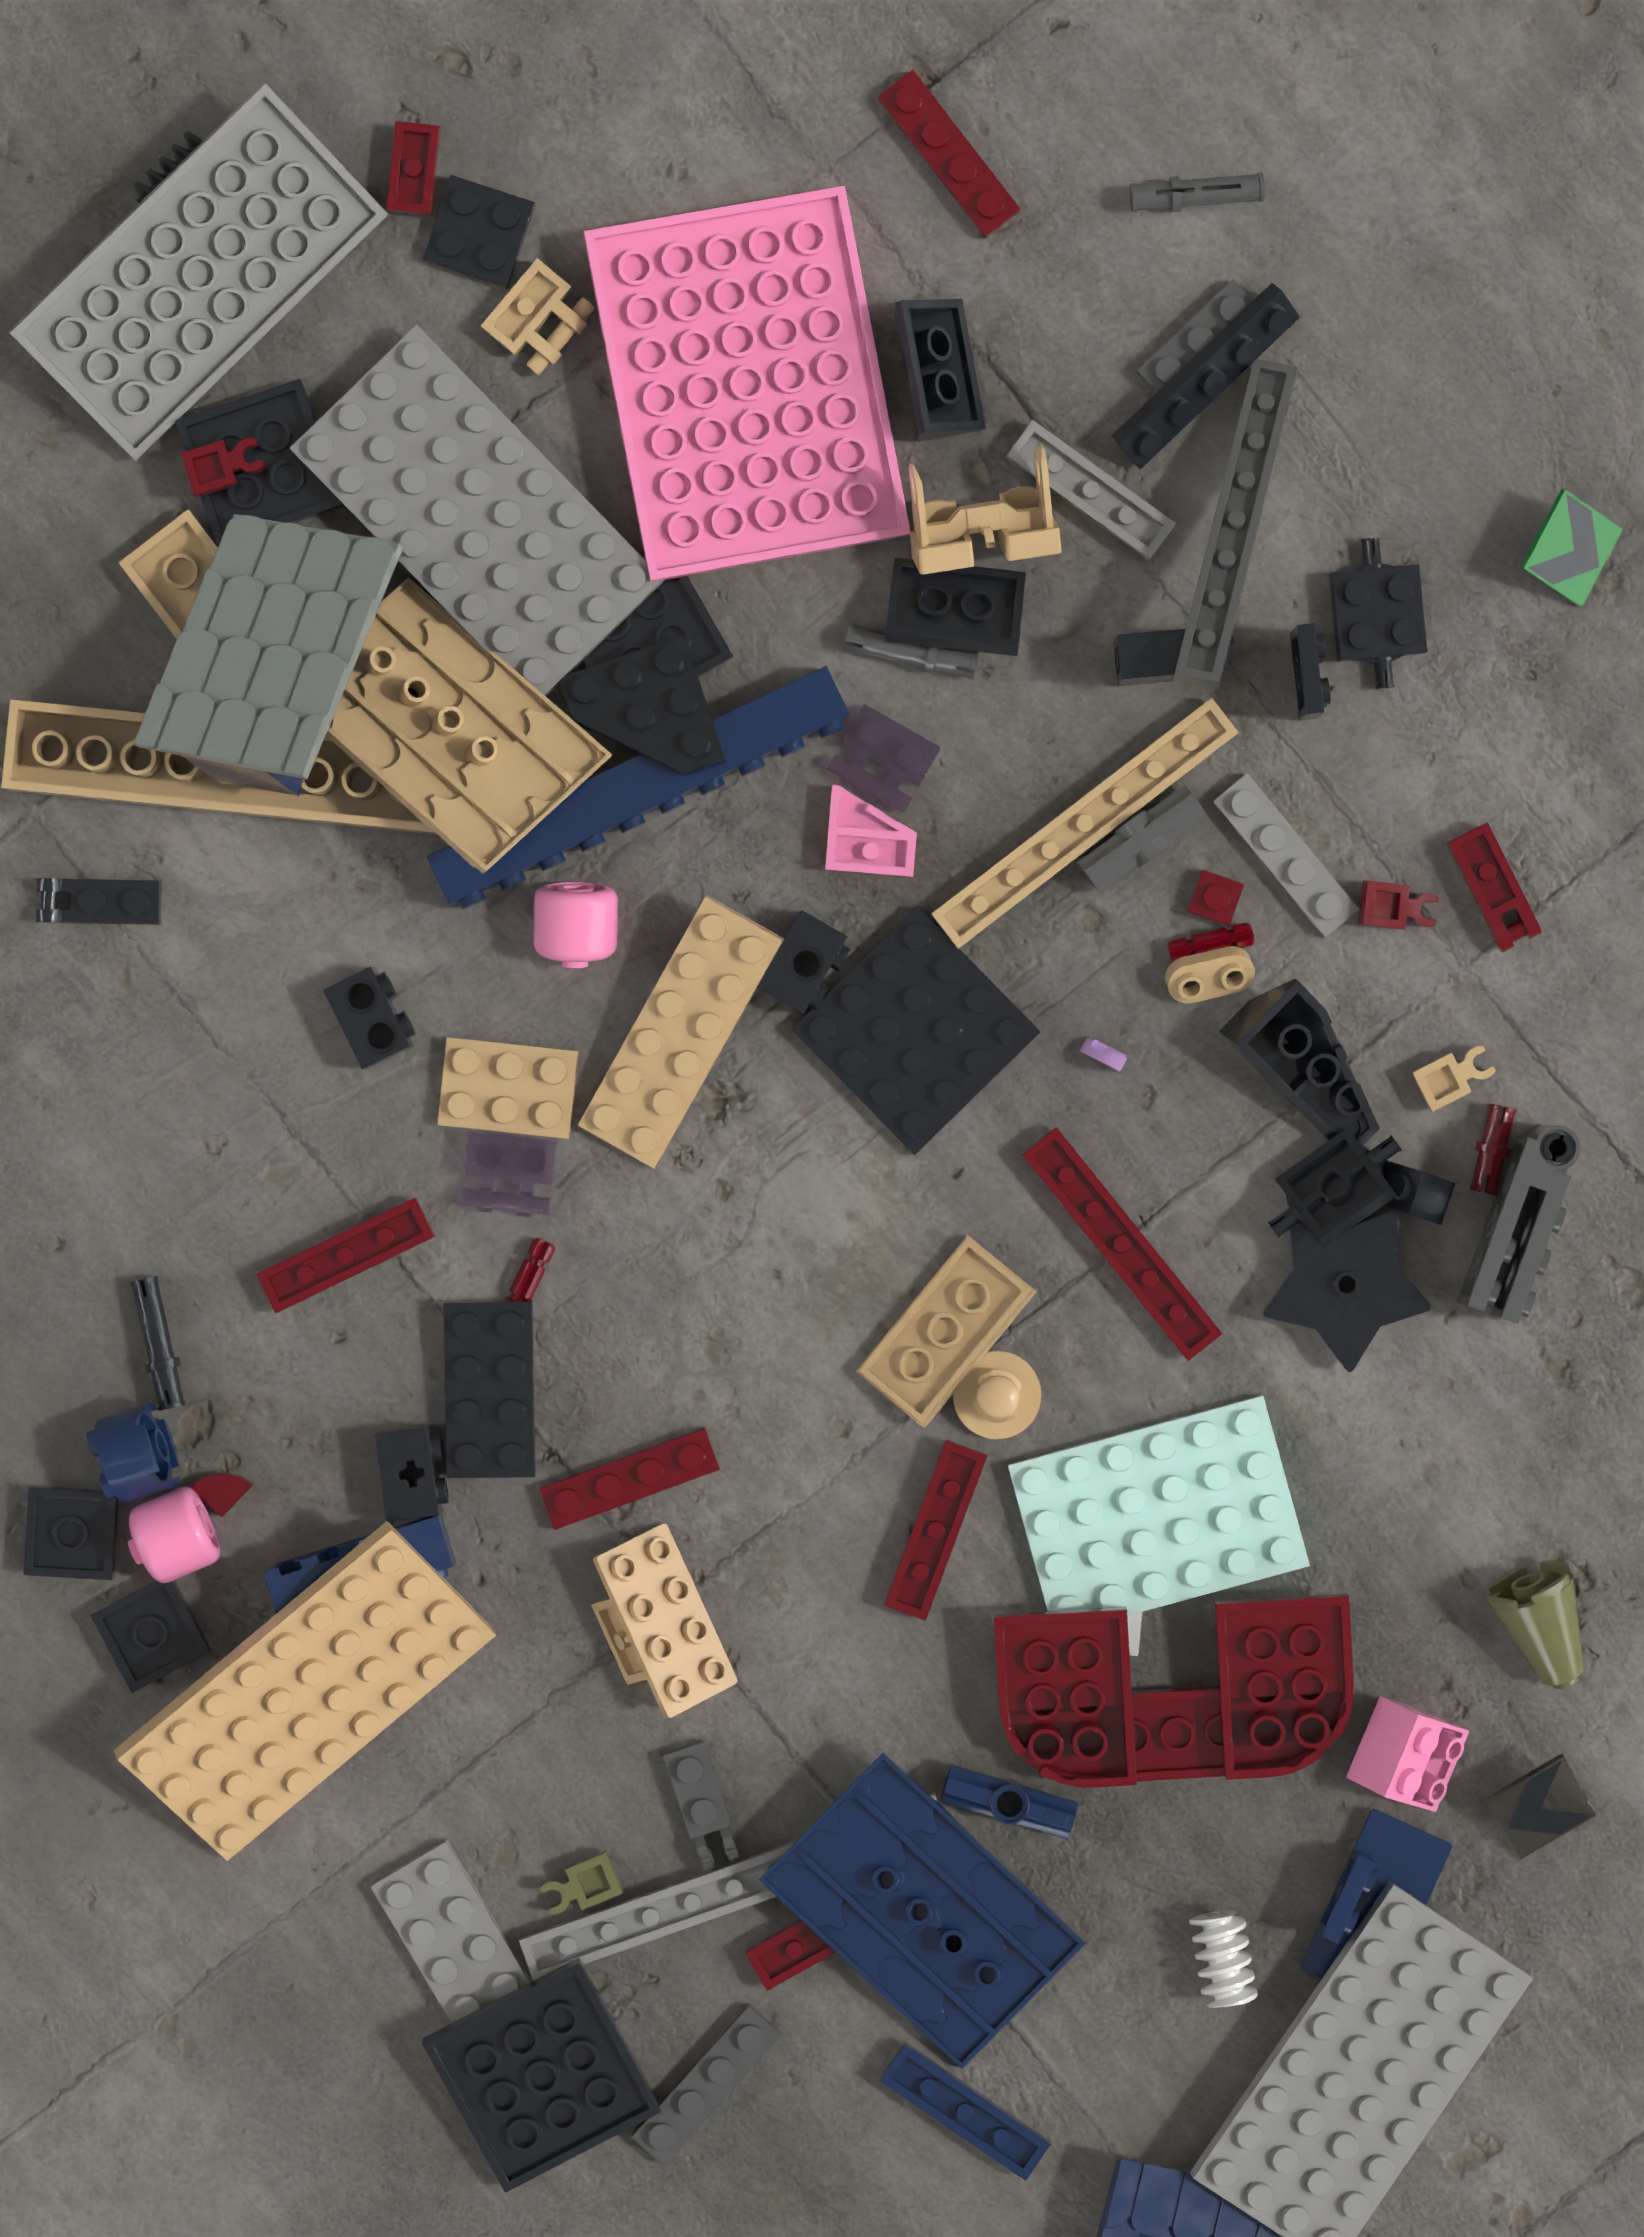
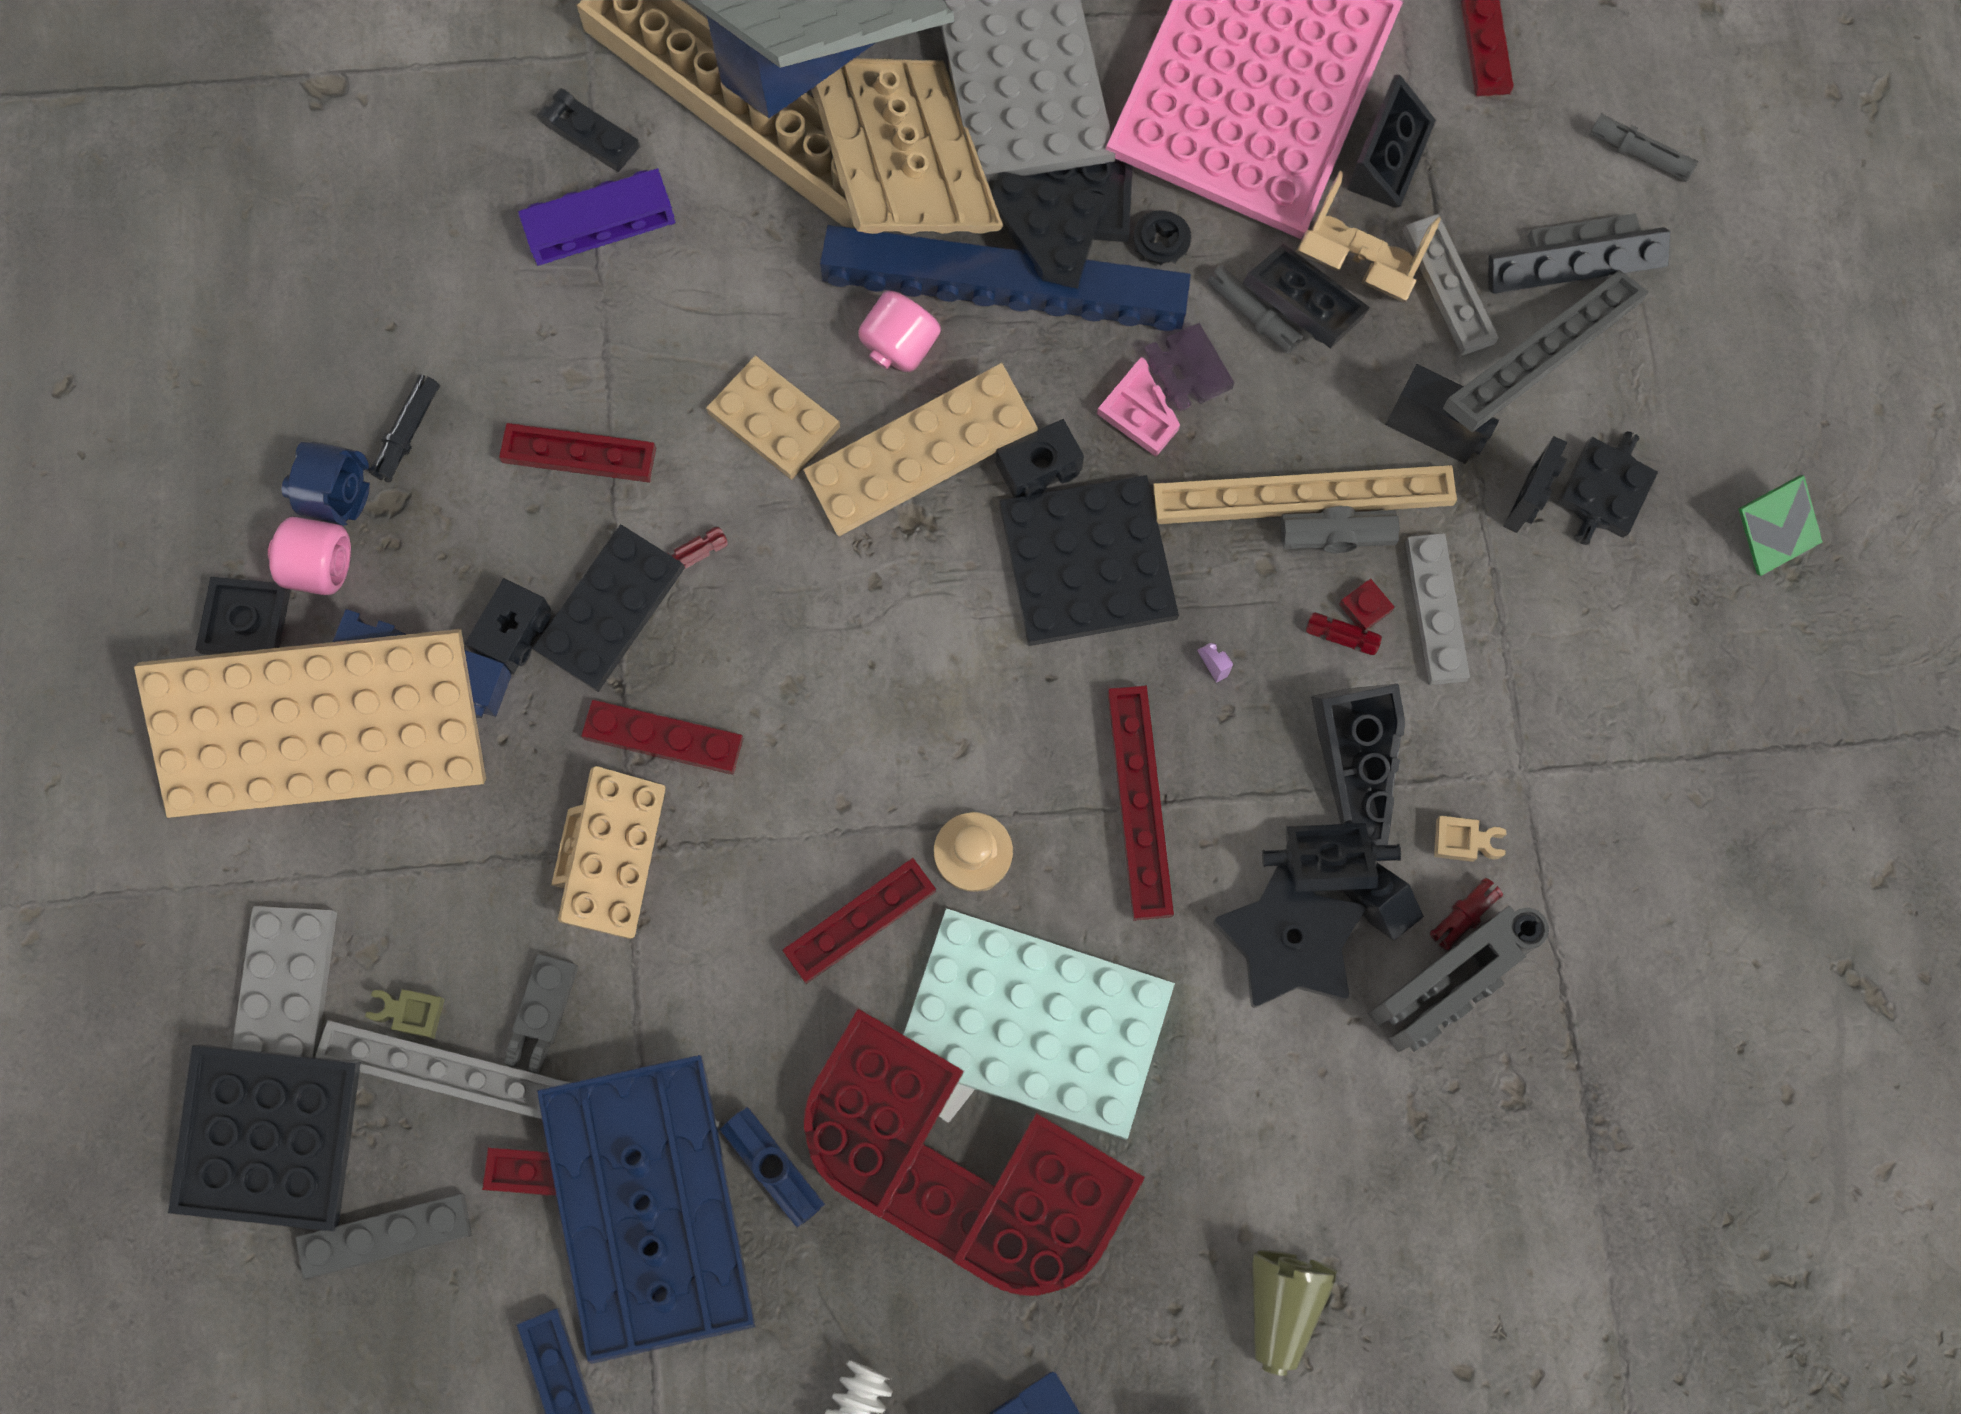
camera: 25 degrees right, 15 degrees down
(70, 1533) = (242, 514): black plate -> none
(181, 995) = (597, 216): none -> dark purple brick
(222, 1490) = (370, 556): dark red tile -> none
(359, 1023) = (705, 308): black brick -> none
(508, 1159) = (740, 462): clear purple plate -> none
(760, 610) = (1166, 224): none -> black gear
(946, 1331) = (967, 780): tan tile -> none
(1210, 973) = (1331, 651): tan plate -> none
(1389, 906) = (1494, 690): dark red plate -> none
(1407, 1754) = (1110, 1343): bright pink slope -> none
(1493, 886) = (1581, 724): dark red plate -> none

